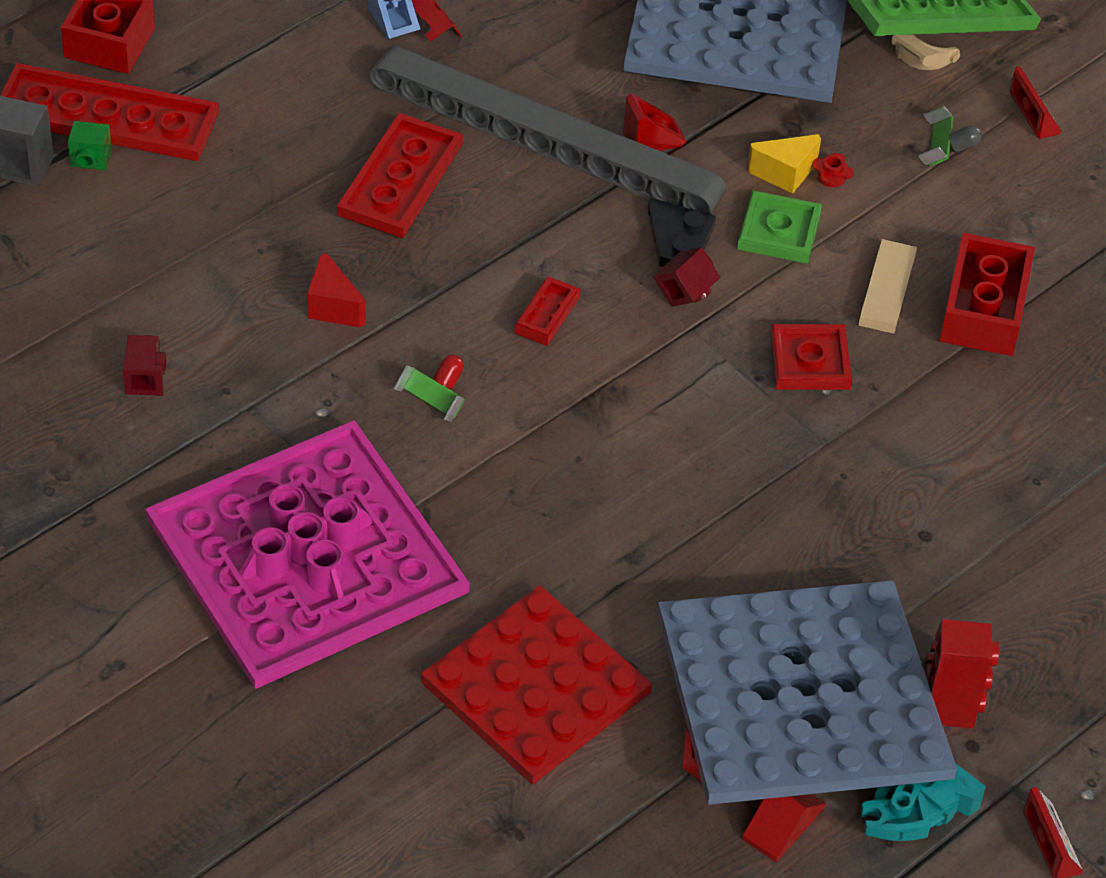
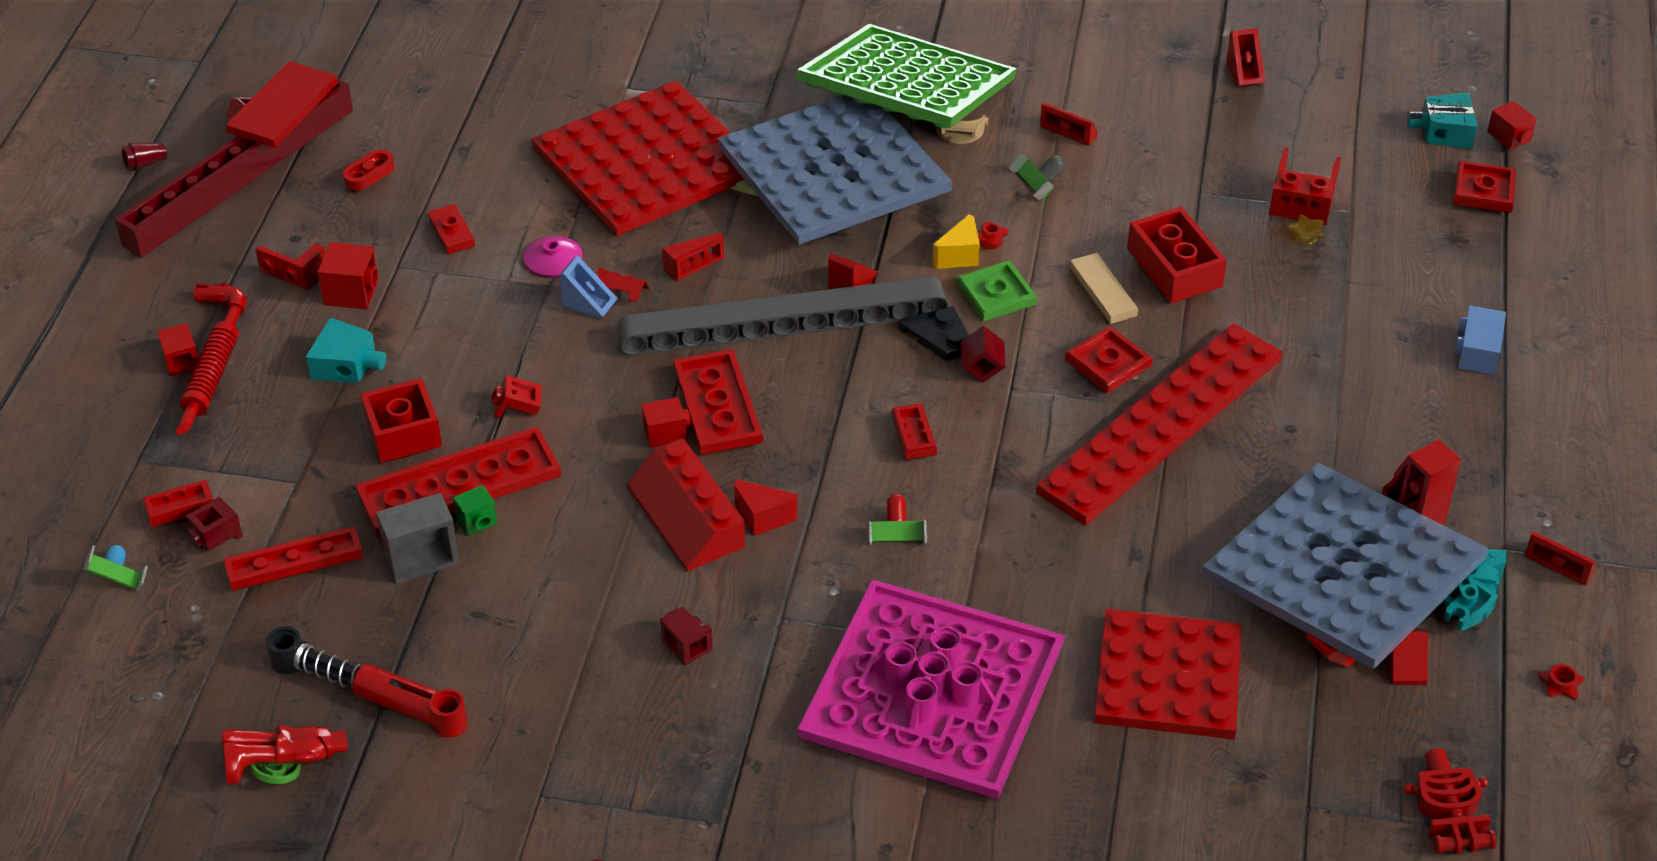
camera: 35 degrees left, 5 degrees down
(232, 65) = (517, 395): none -> red bracket
(270, 253) = (687, 506): none -> red slope
(331, 165) = (665, 421): none -> red brick
(508, 18) = (683, 258): none -> red slope
(798, 448) = (1158, 424): none -> red plate

